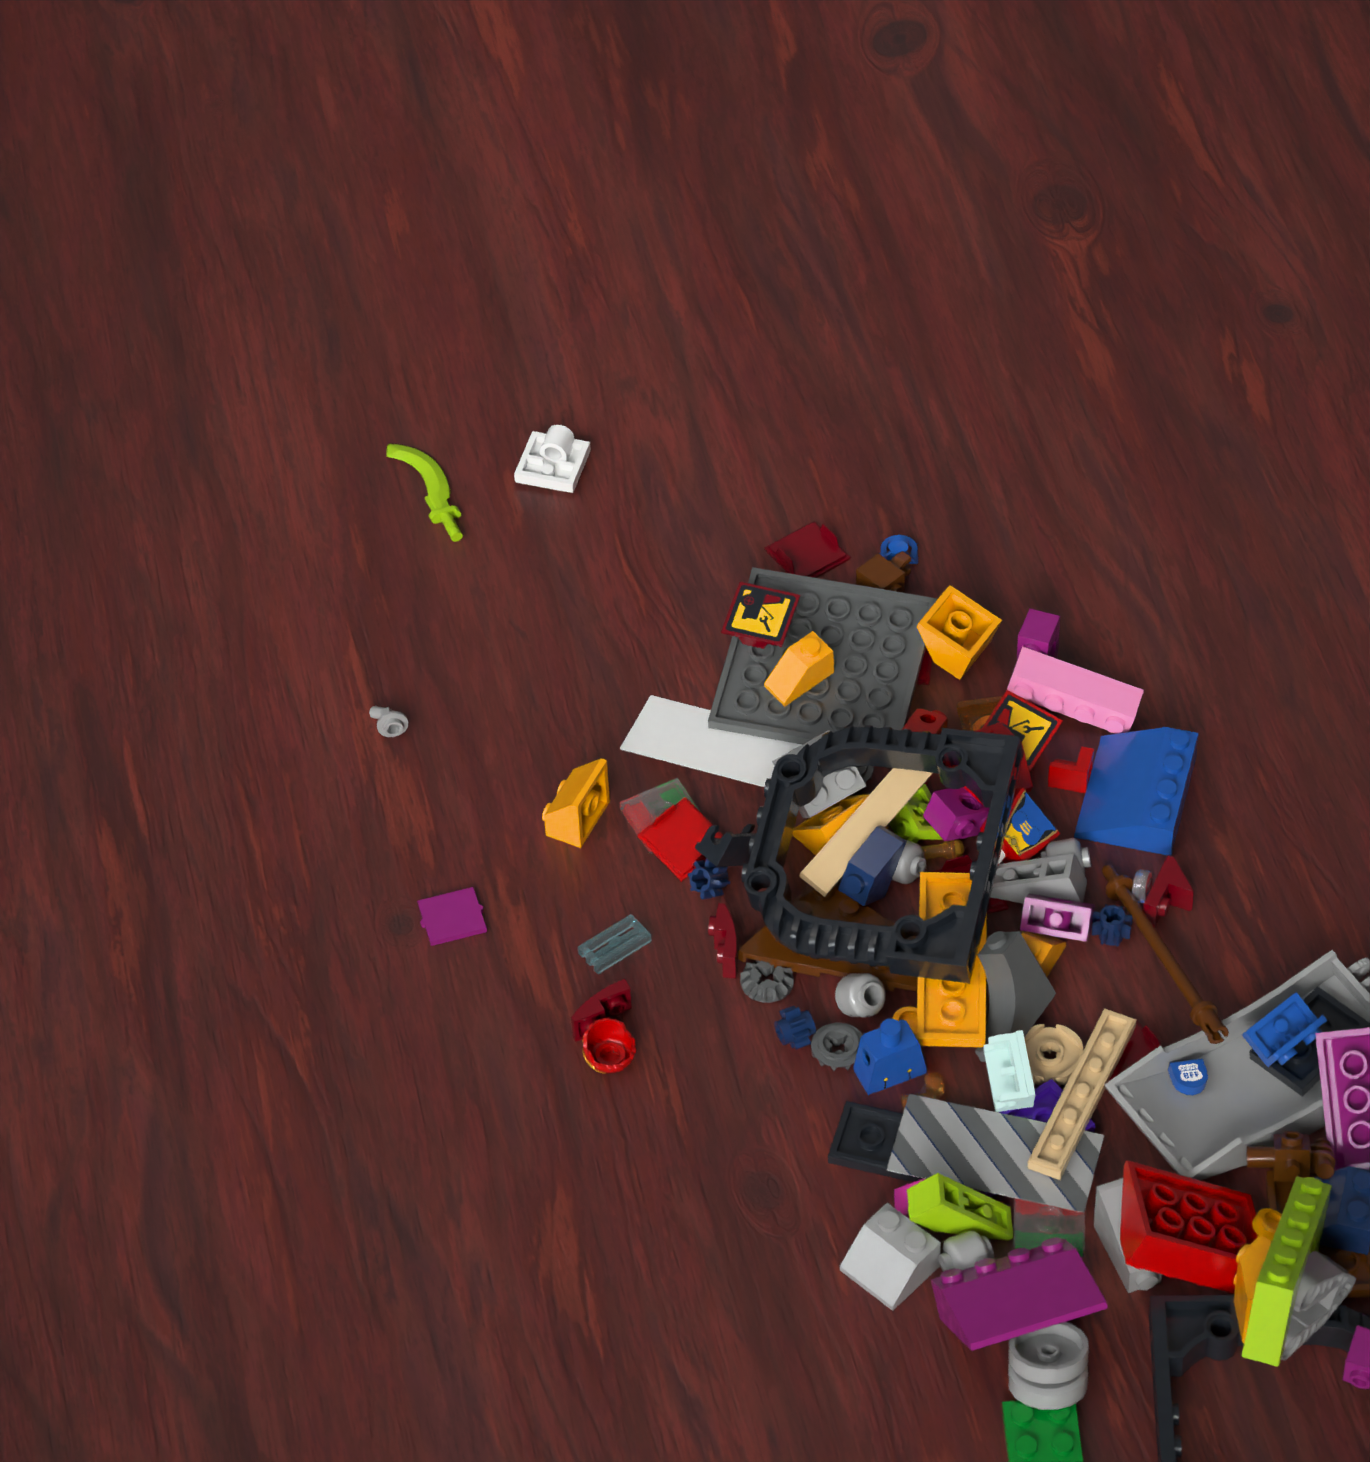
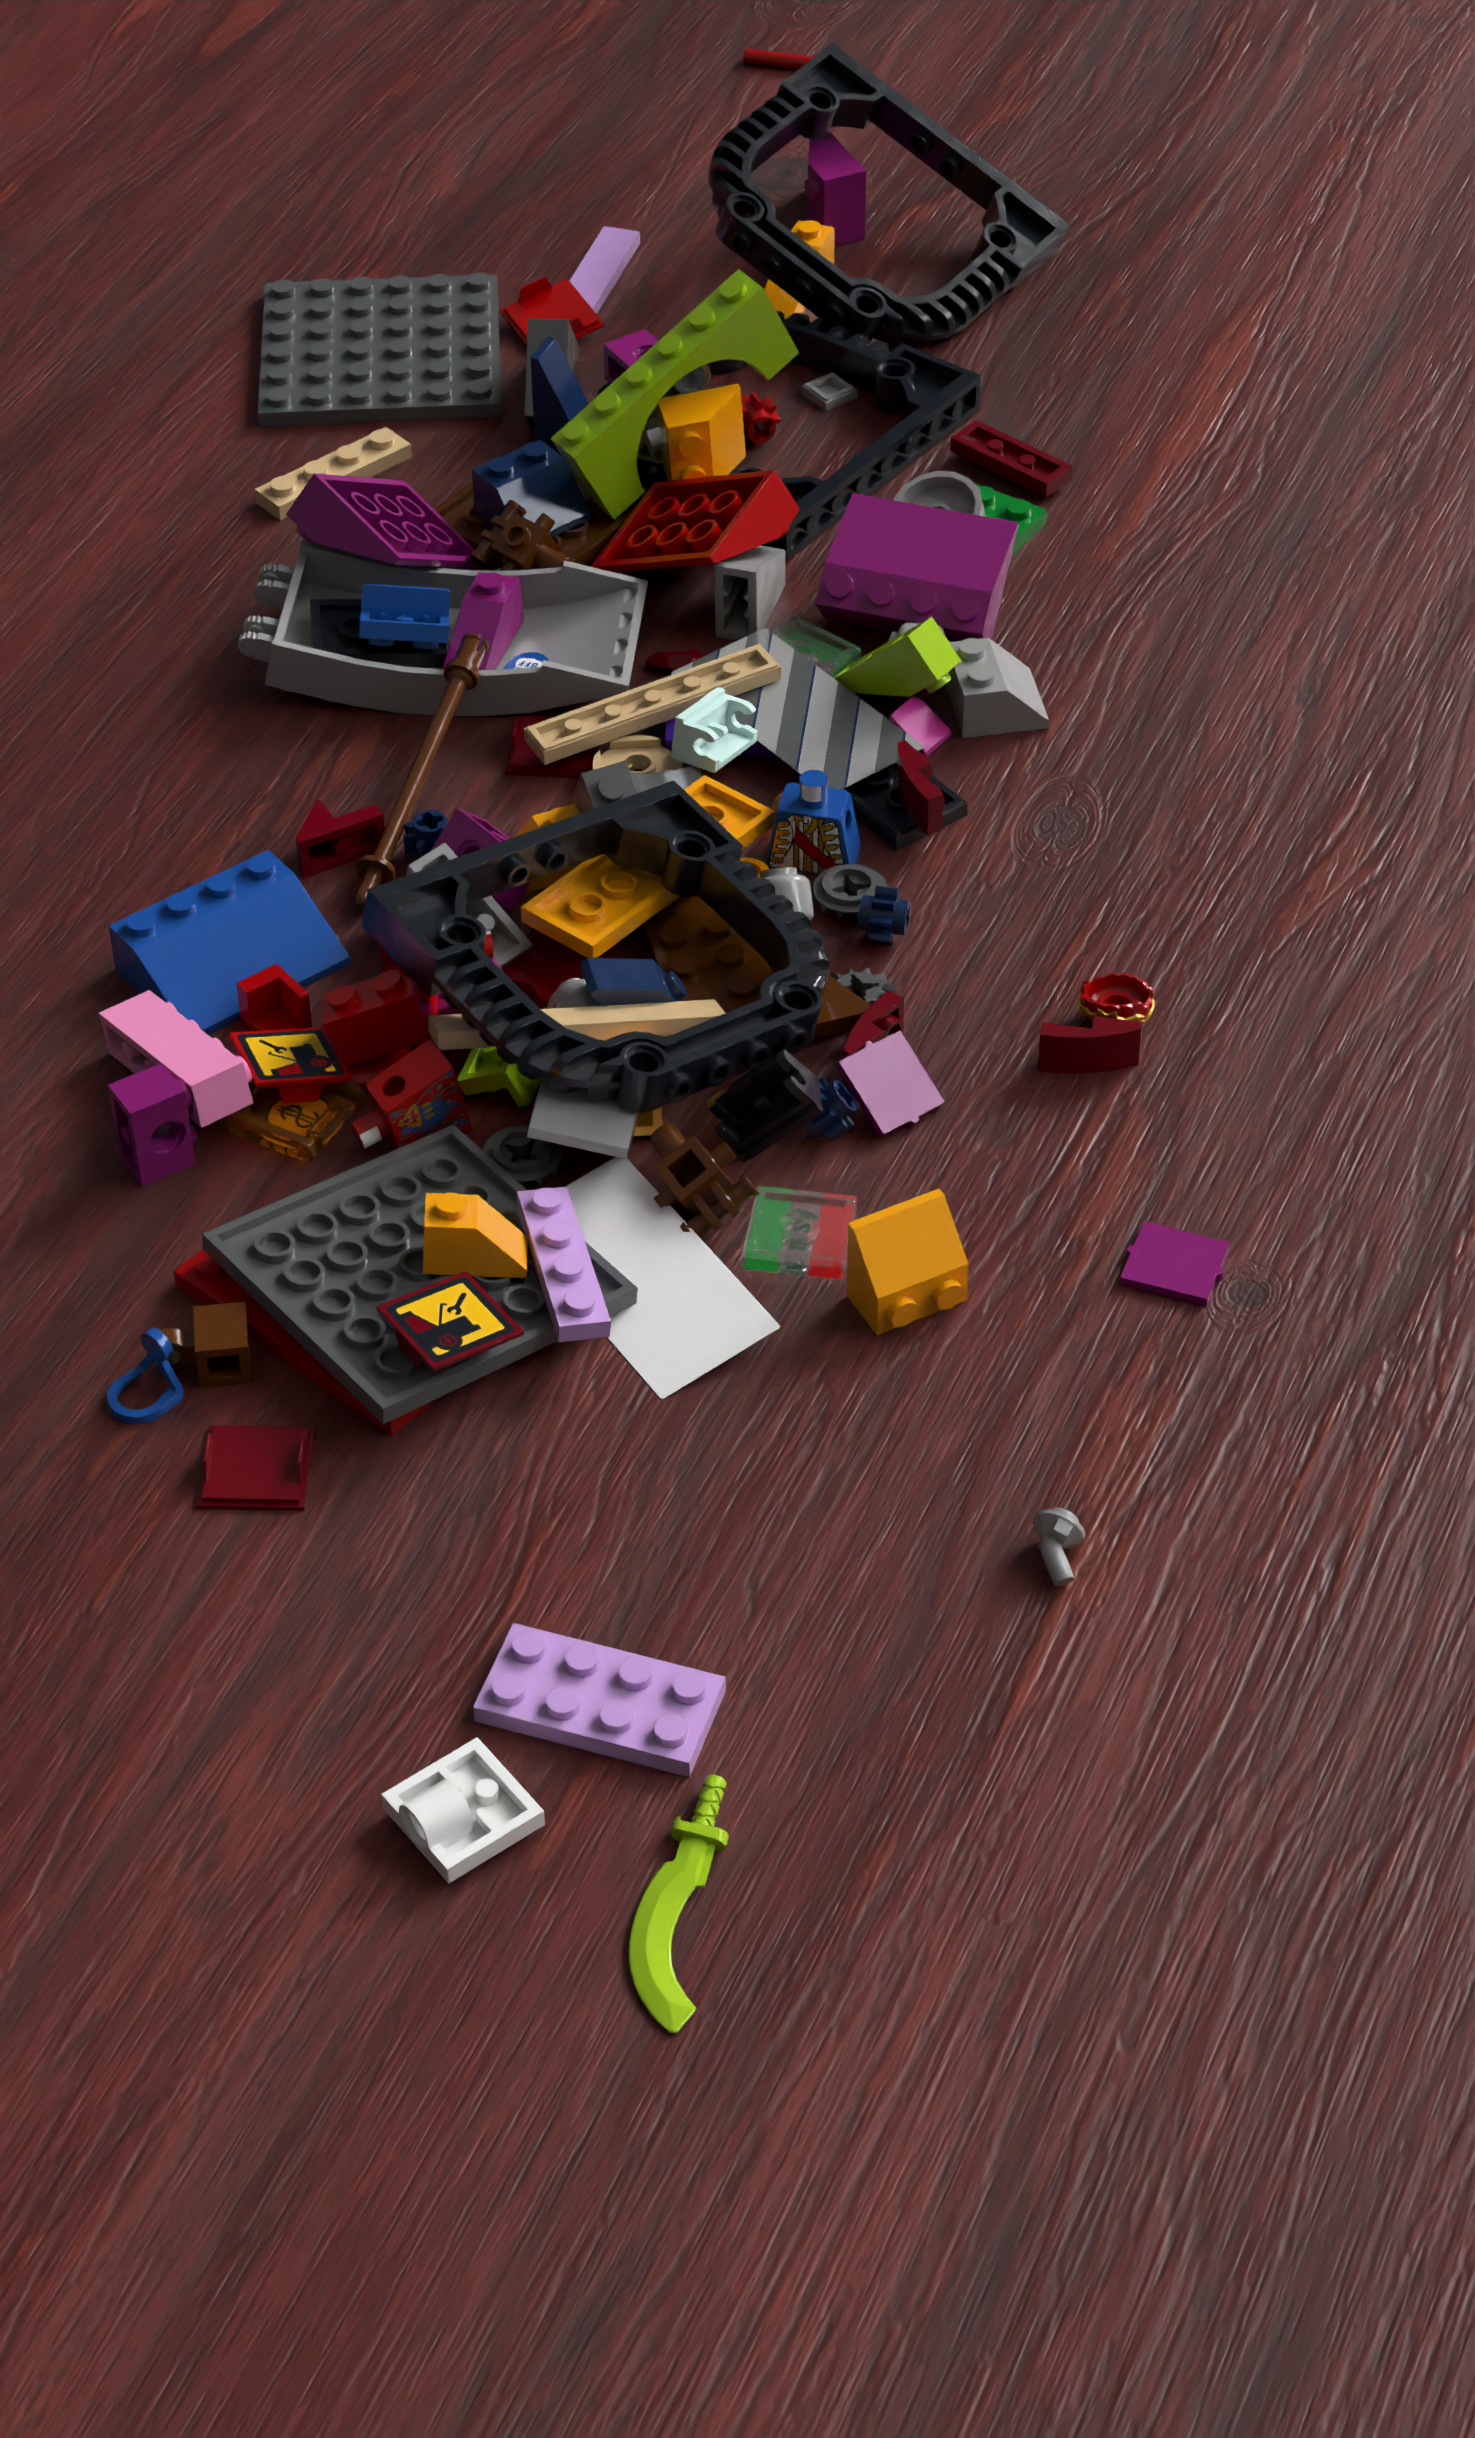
camera: 145 degrees left, 5 degrees down
(541, 542) = (600, 1699): none -> lavender plate
(618, 946) = (1000, 1123): clear light blue tile -> none
(675, 835) = (806, 1176): red piece -> none
(688, 915) = (890, 1083): none -> piece
(731, 791) = (698, 1179): none -> reddish brown piece
(752, 700) = (563, 1264): none -> lavender plate
(866, 1127) = (919, 796): none -> dark red slope
(957, 631) = (218, 1187): light orange slope -> none
(1115, 1164) = (671, 661): none -> dark red bar
(1142, 885) = (345, 854): clear tile -> none
(1247, 1084) = (492, 610): none -> magenta slope
(1266, 1222) = (608, 521): light orange tile -> none
(1293, 1415) = (759, 418): none -> red gear

